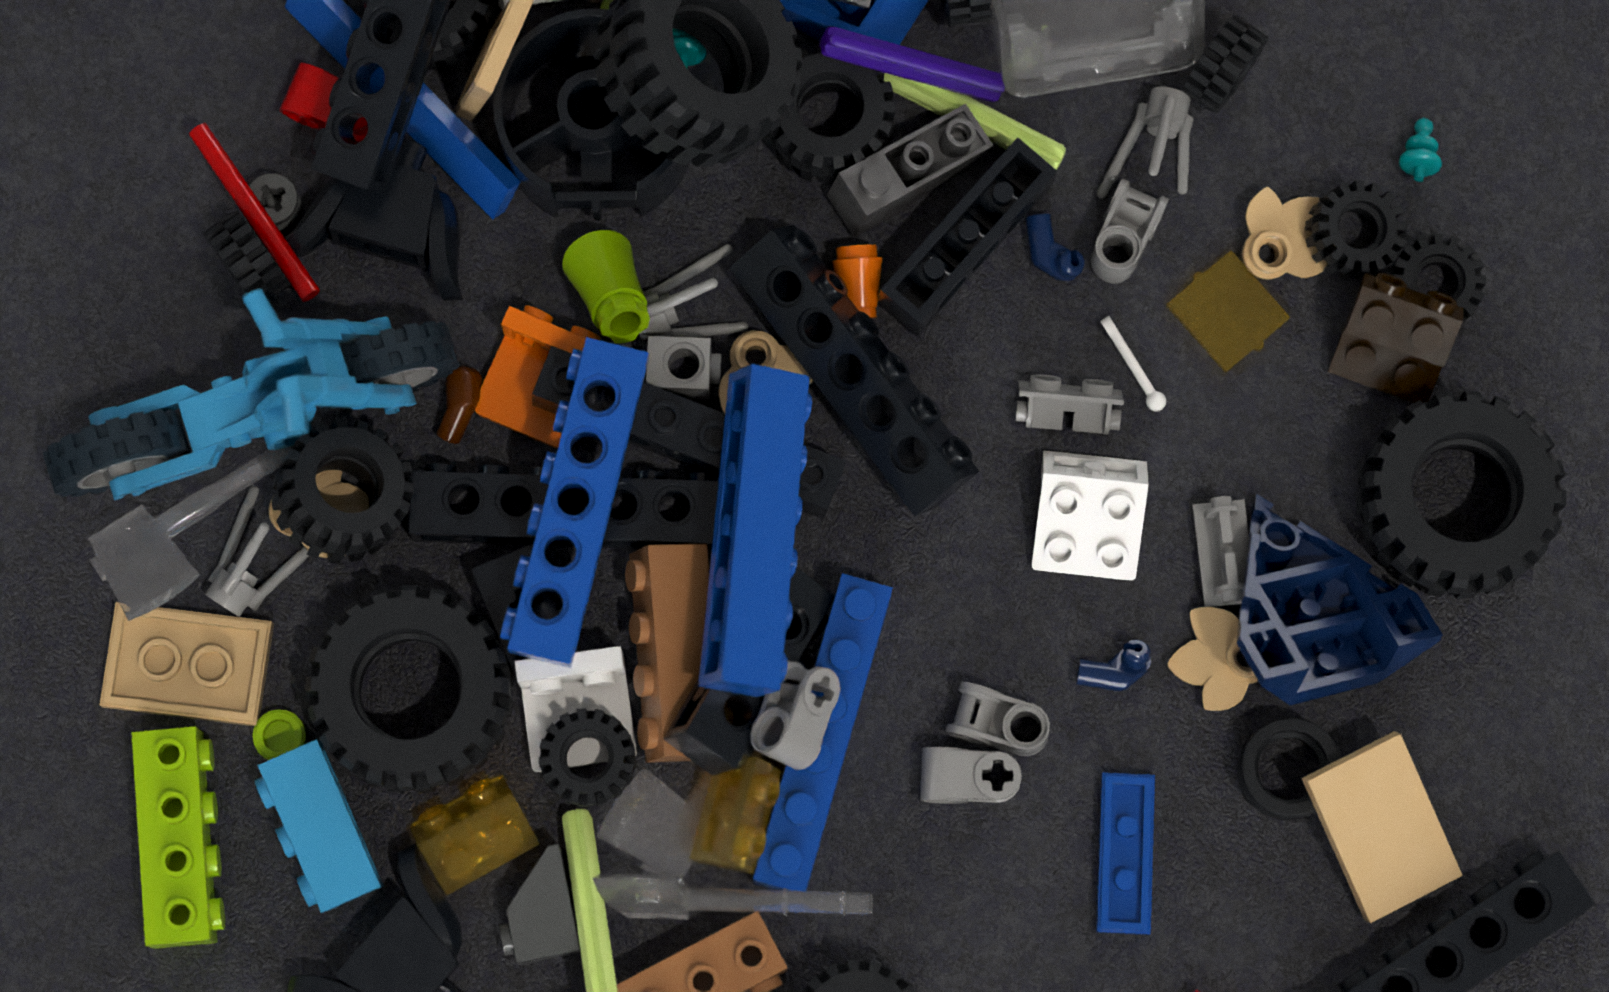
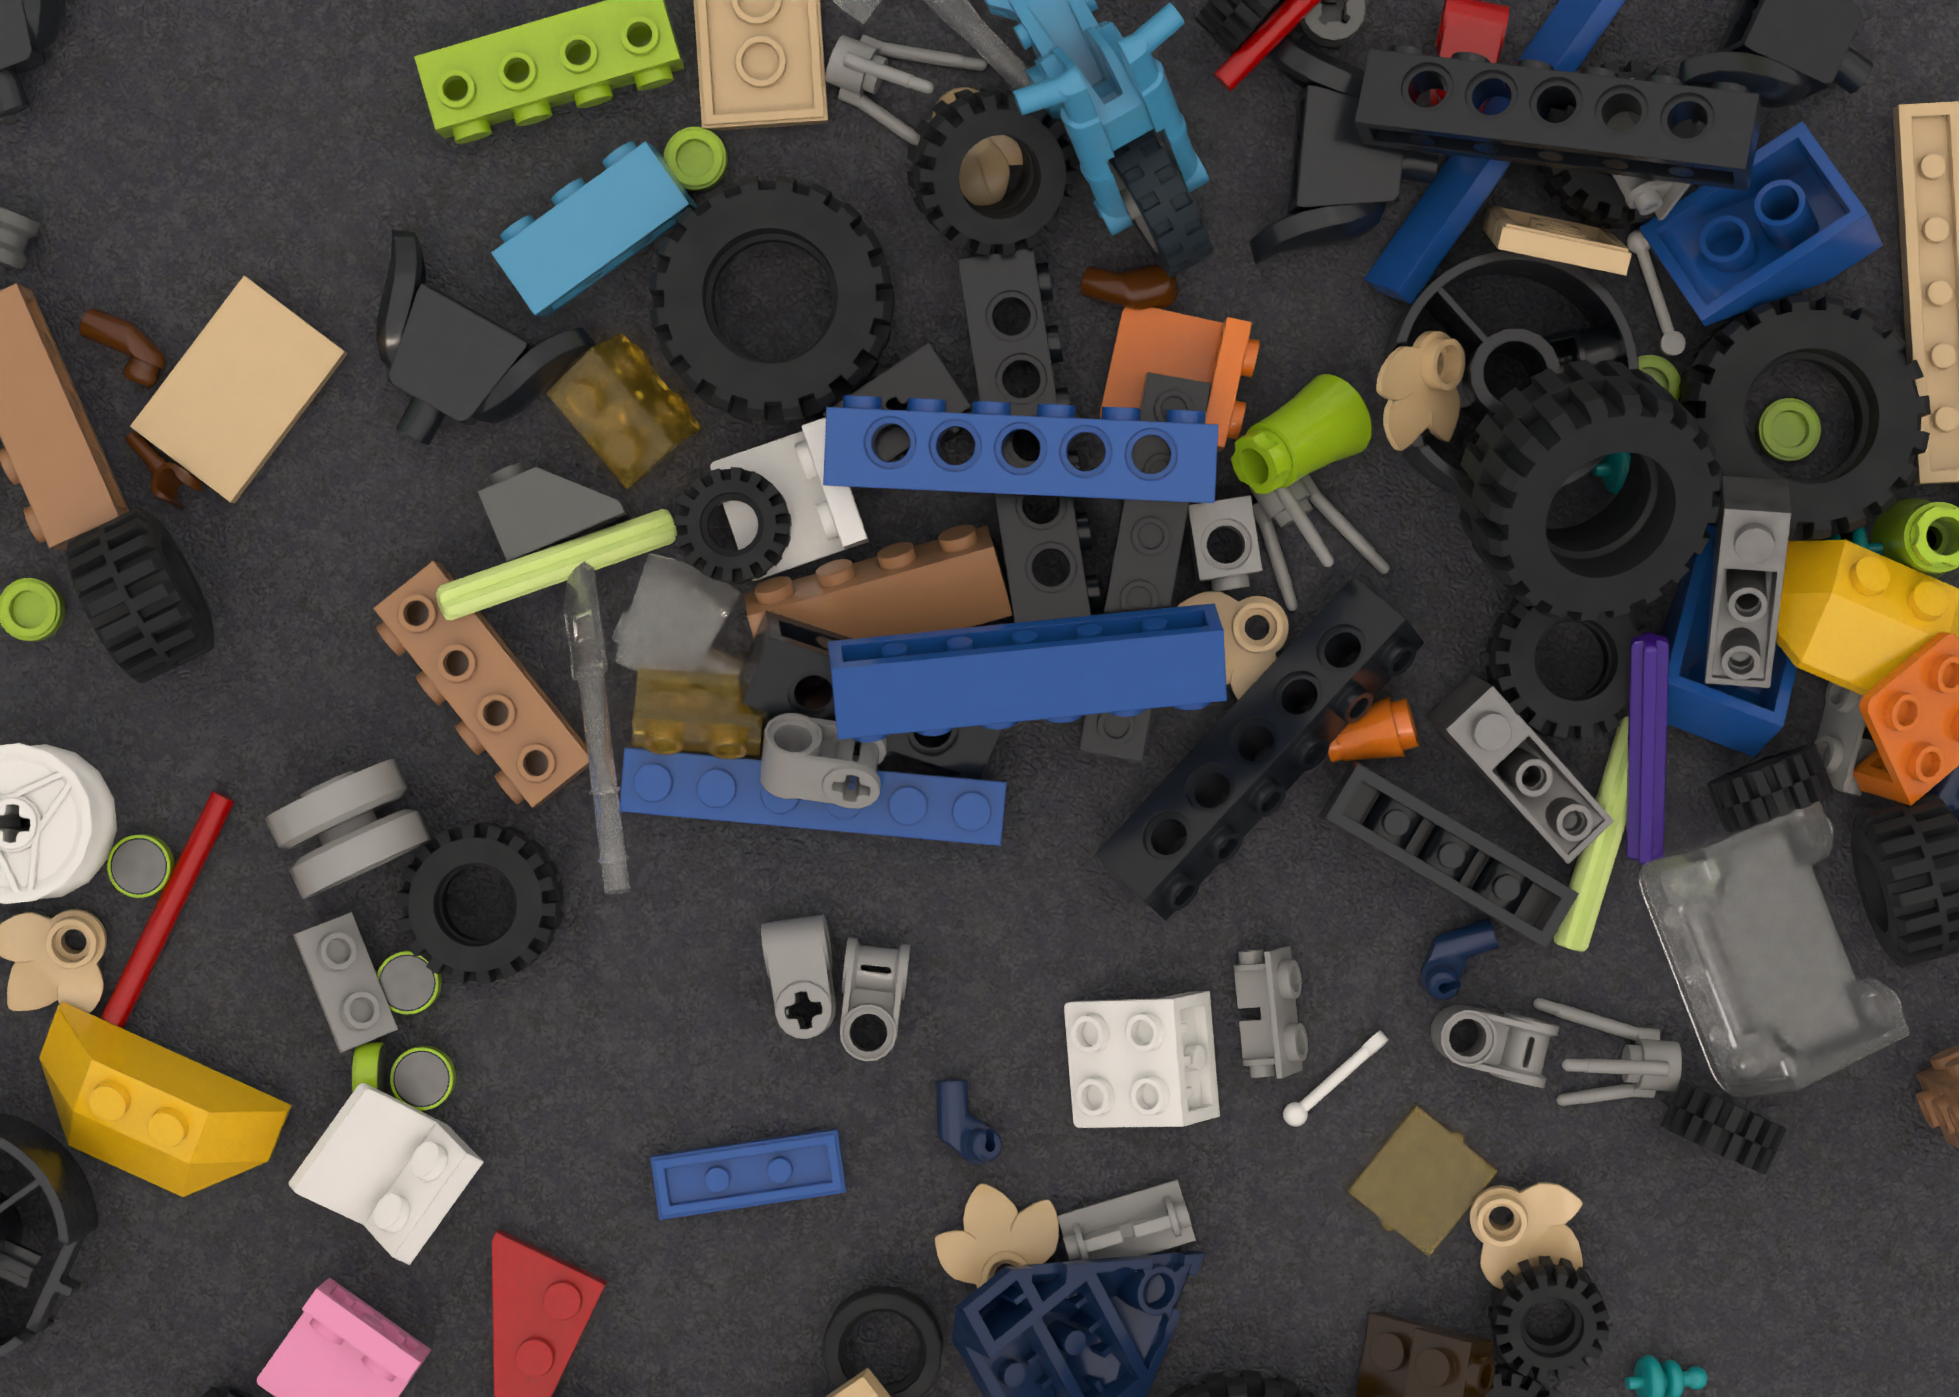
camera: 75 degrees right, 10 degrees up
(590, 180) = (1421, 389): none -> tan plate

